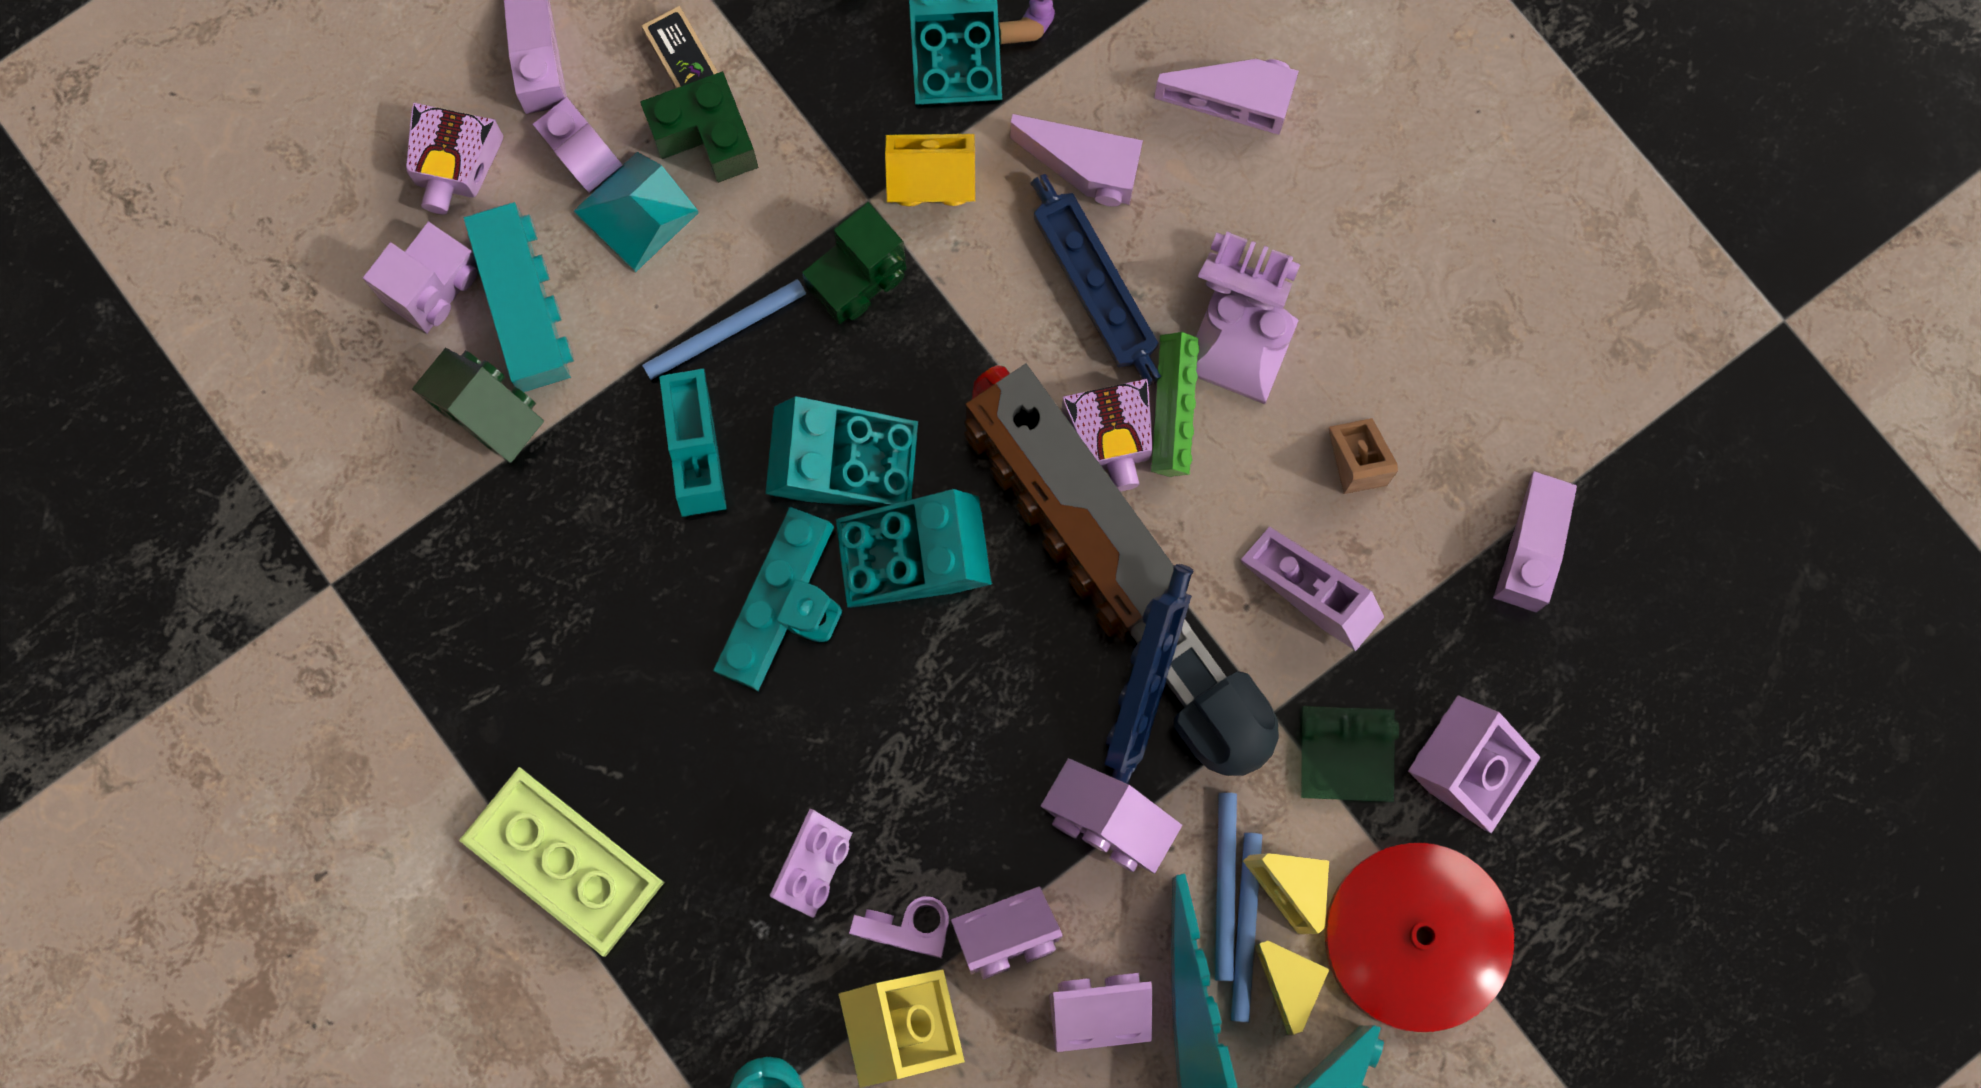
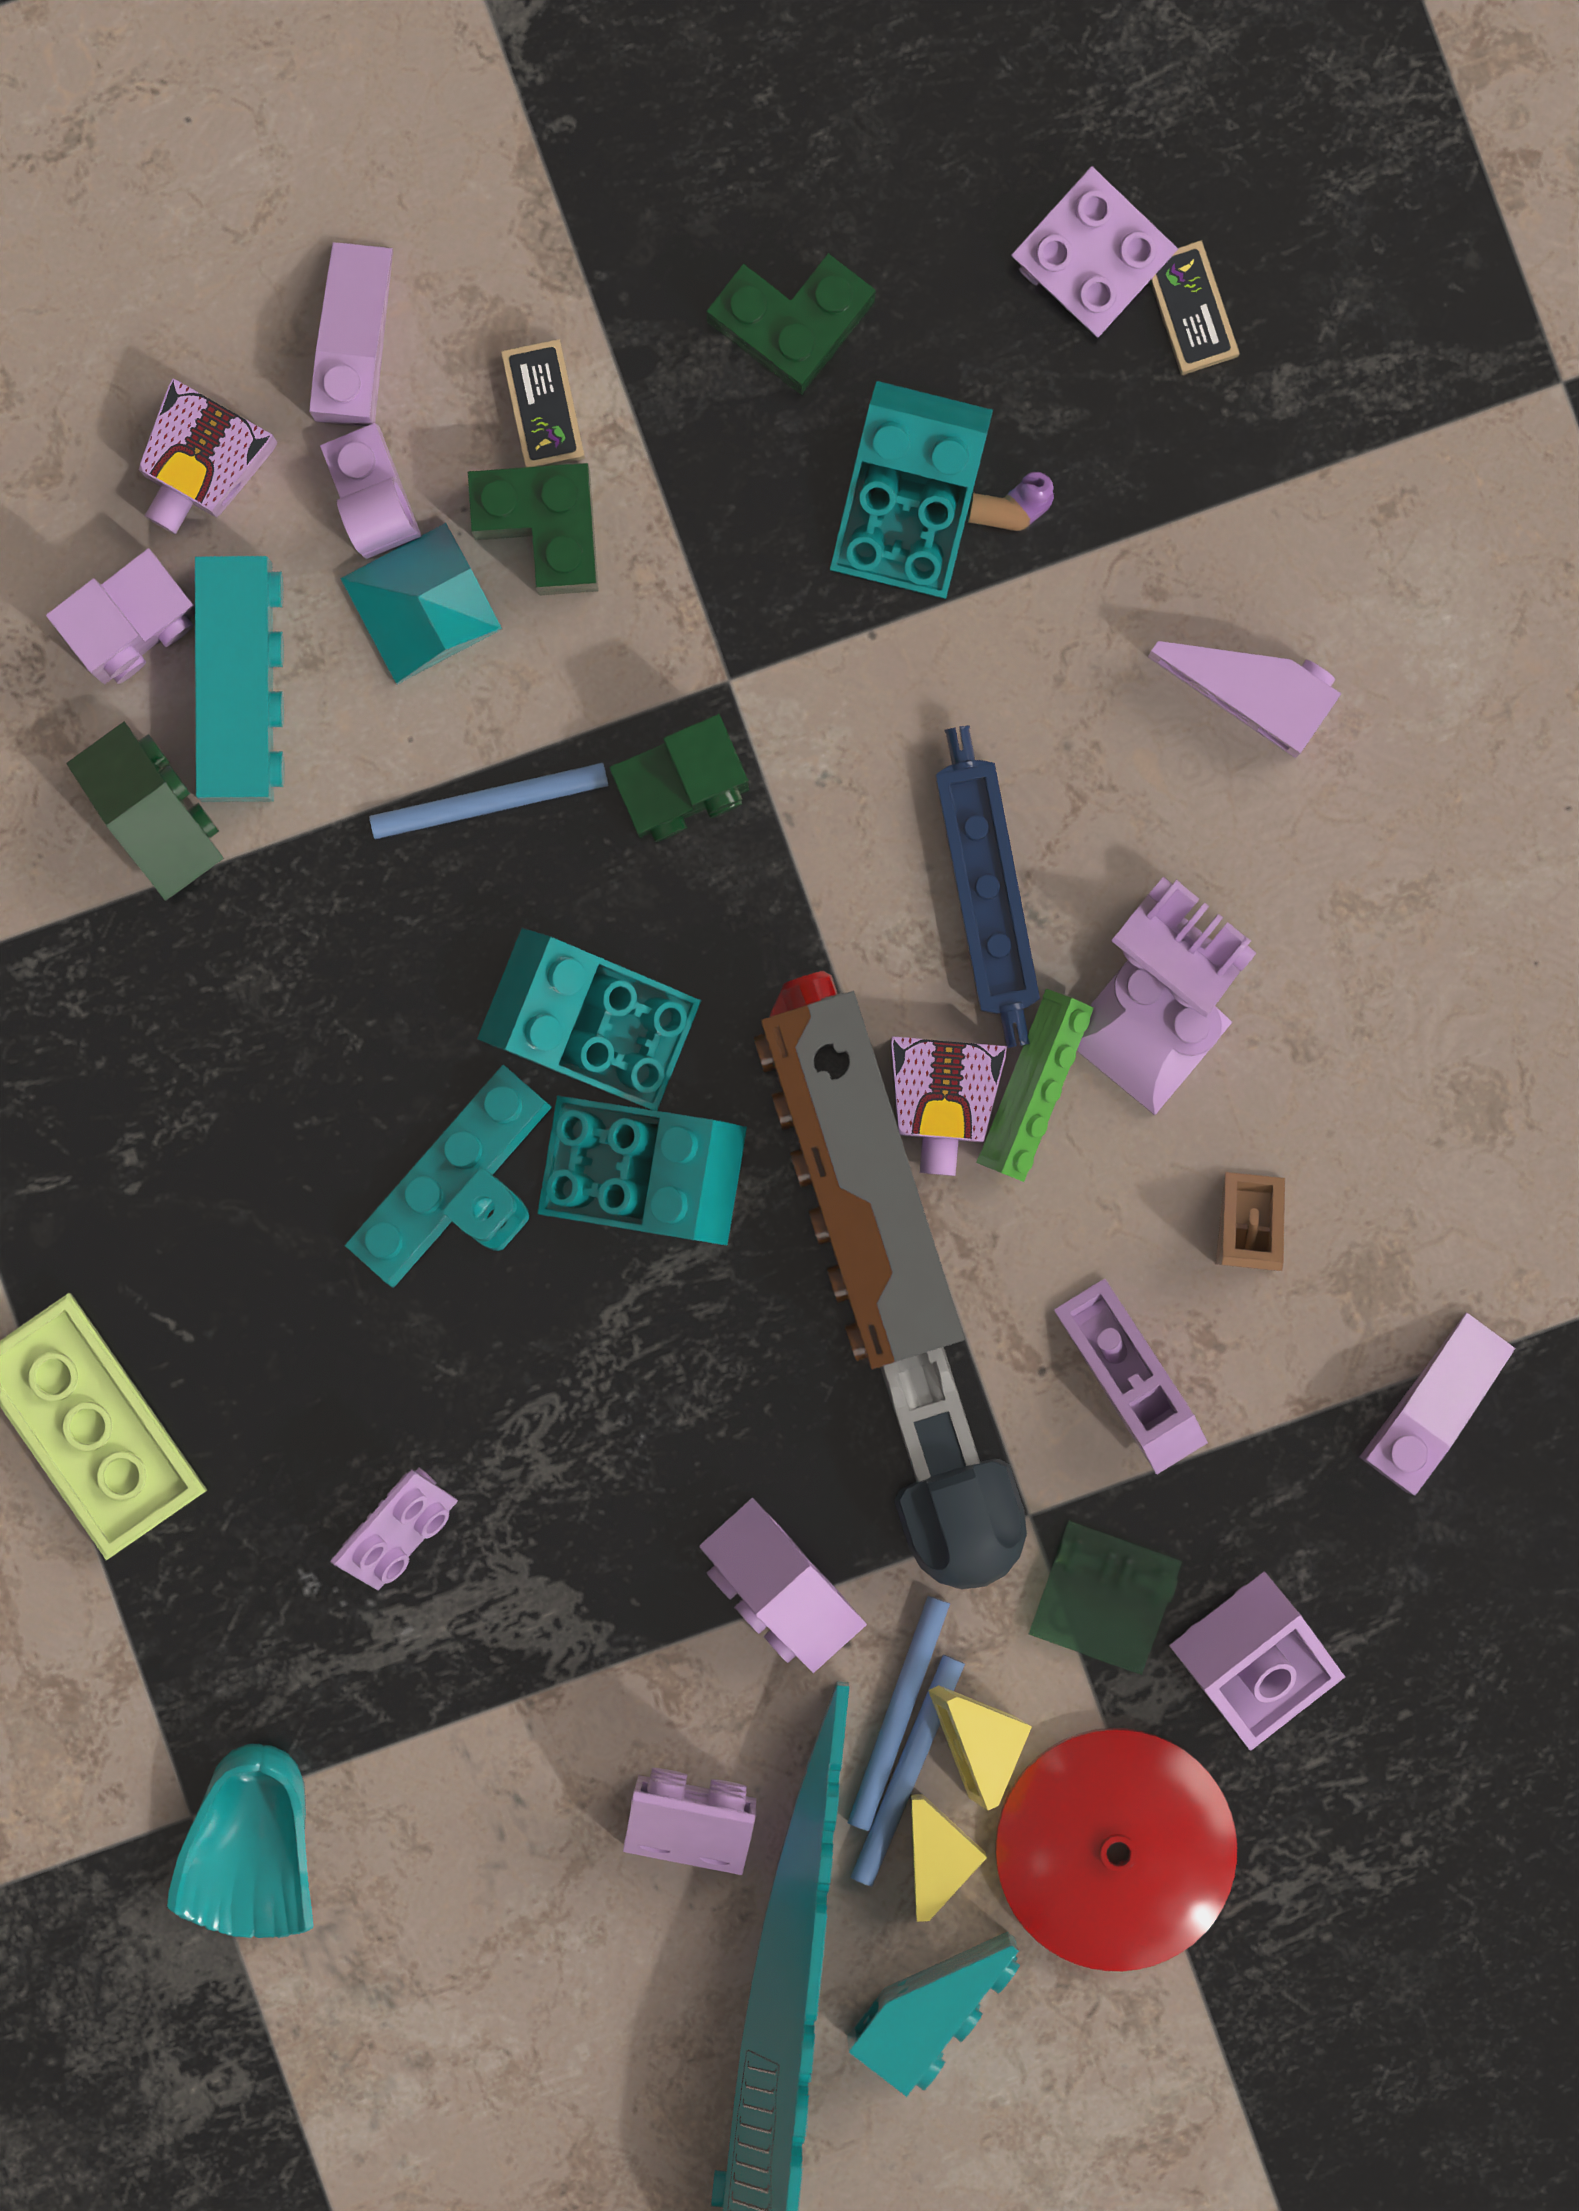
camera: 15 degrees right, 10 degrees up
(692, 443) = (404, 940): teal slope -> none
(879, 928) = (454, 1633): lavender plate -> none
(901, 1028) = (444, 1761): light yellow slope -> none
(930, 169) = (819, 674): yellow brick -> none
(1007, 931) = (606, 1691): lavender slope -> none
(1089, 160) = (1032, 725): lavender slope -> none
(1151, 666) = (872, 1446): dark blue plate -> none

